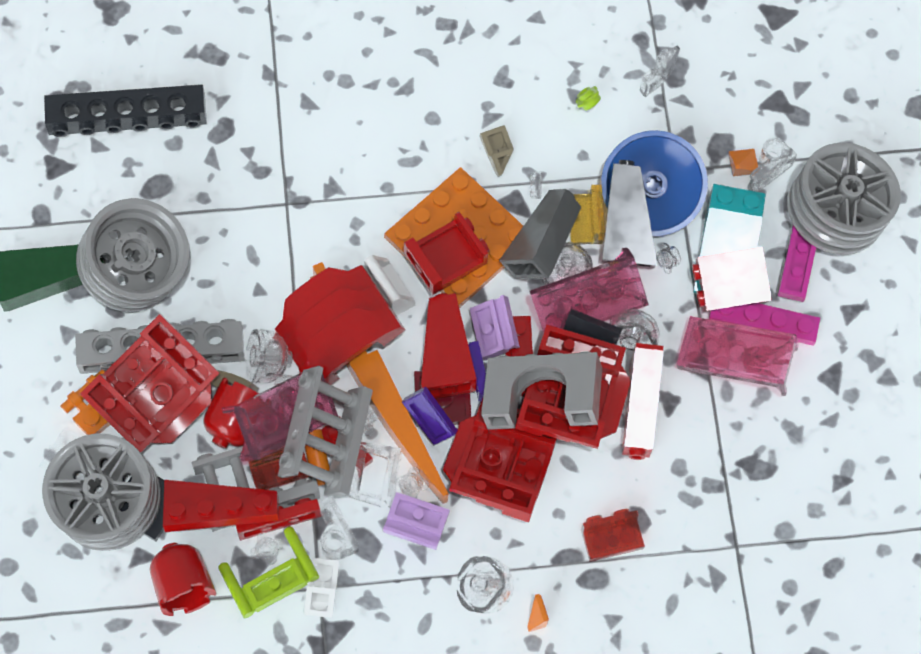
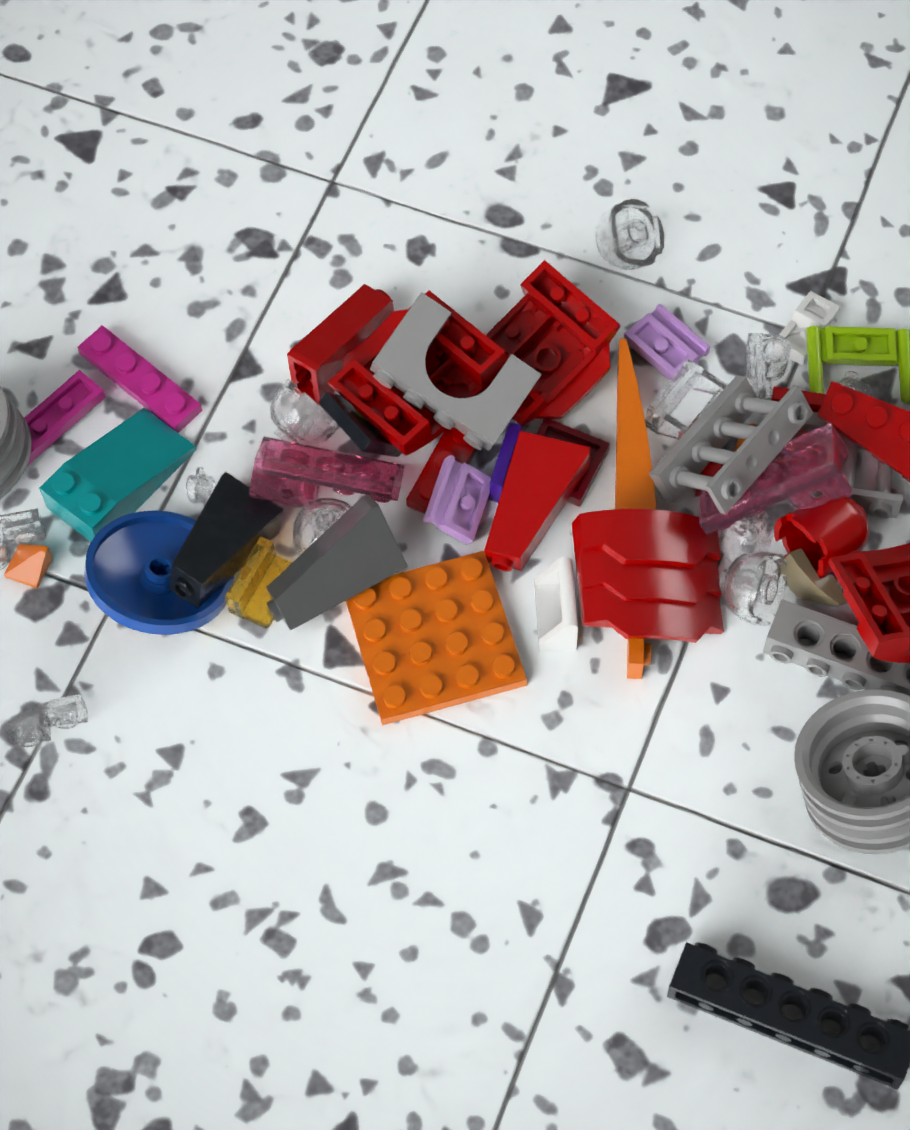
camera: 145 degrees left, 5 degrees down
(405, 486) = (650, 380): clear plate -> none
(429, 416) = (594, 429): dark purple tile -> none
(447, 254) = (467, 603): red panel -> none
(497, 147) = (317, 725): dark tan slope -> none
(536, 185) = (302, 648): clear tile -> none
(538, 616) = (587, 200): orange slope -> none
(588, 98) = (163, 721): lime plate -> none
(612, 535) = (459, 240): clear red bracket -> none
(732, 279) = (149, 415): panel -> none
(738, 352) = (200, 341): clear pink plate -> none

